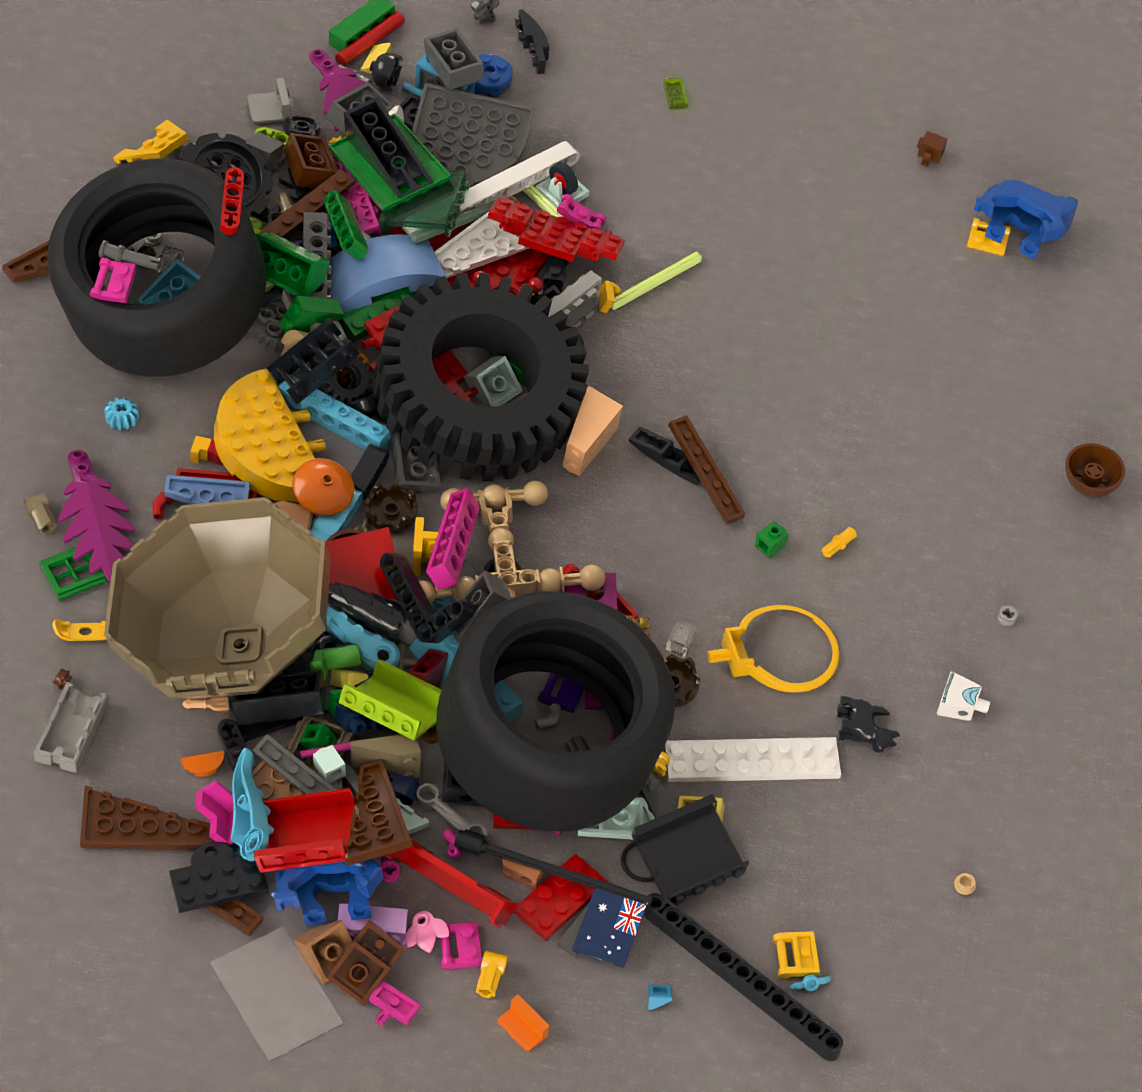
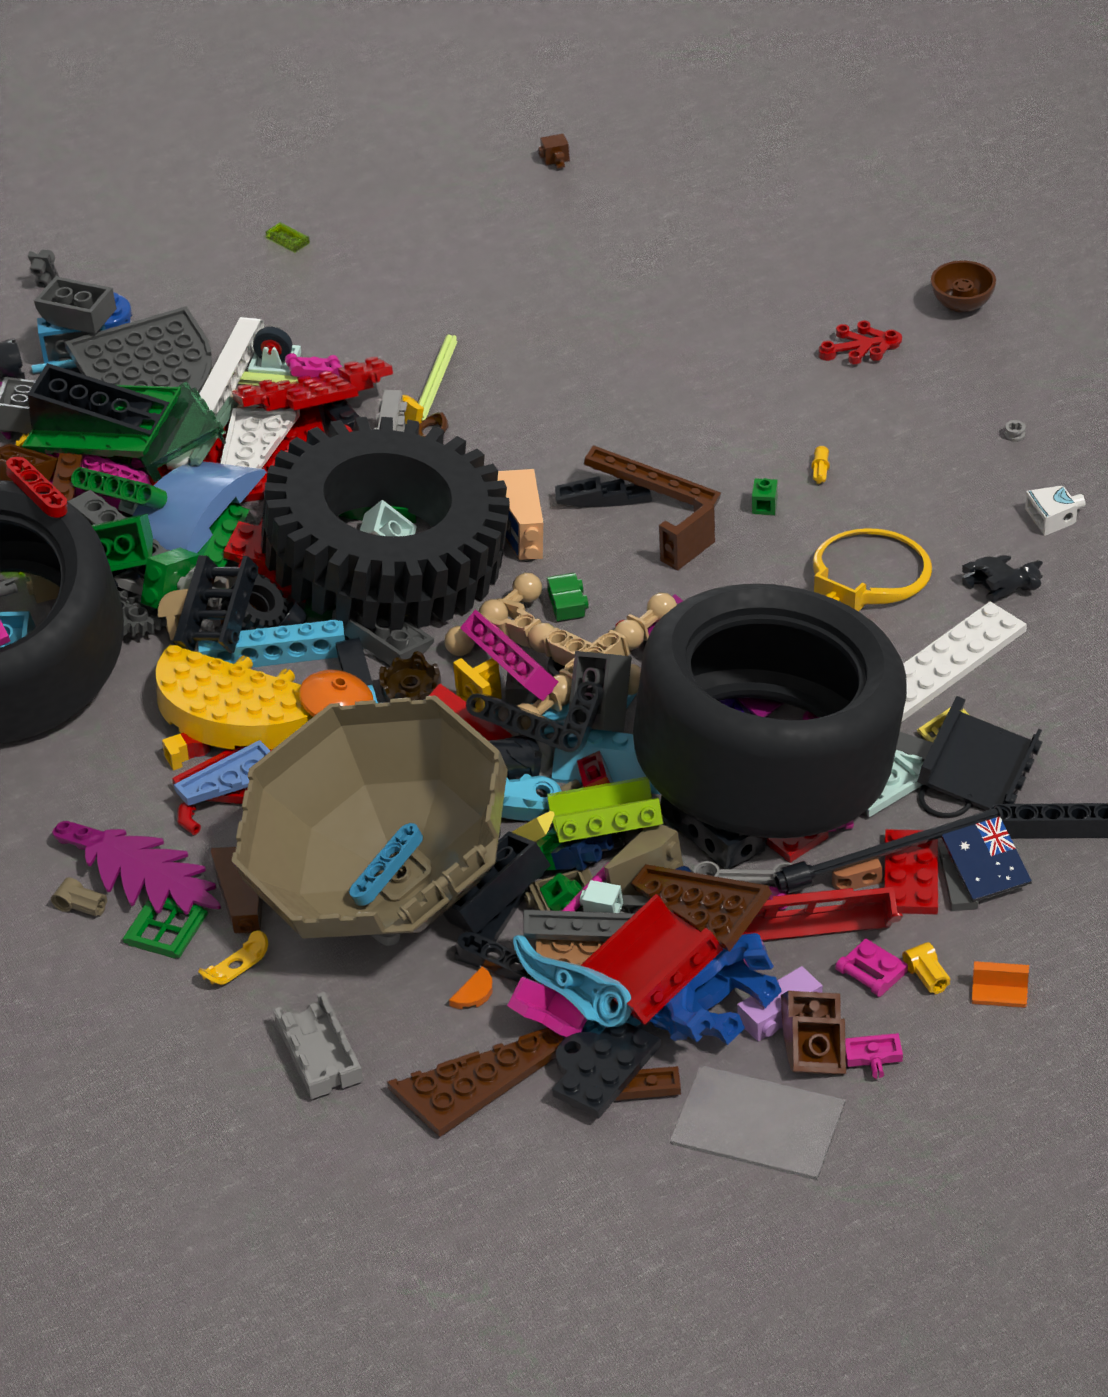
camera: 30 degrees left, 10 degrees down
(62, 678) = (259, 1014): reddish brown plate -> none
(121, 413) = (65, 771): medium azure gear -> none
(199, 640) = (368, 887): none -> dark azure beam
(215, 704) = (428, 937): light nougat piece -> none
(323, 947) = (762, 1051): medium nougat slope -> none
(336, 658) = (513, 813): bright green bracket -> none
(425, 934) = (837, 973): bright pink plate -> none
(534, 39) = (114, 266): black slope -> none
(557, 518) = (566, 596): none -> green brick
(619, 314) = (437, 418): none -> reddish brown piece
(658, 995) = (1081, 885): dark azure slope -> none
(682, 534) = (689, 538): none -> reddish brown panel
(978, 240) = (676, 189): yellow plate -> none
(997, 474) = (886, 340): none -> red plant
(1028, 209) = (693, 141): blue piece -> none

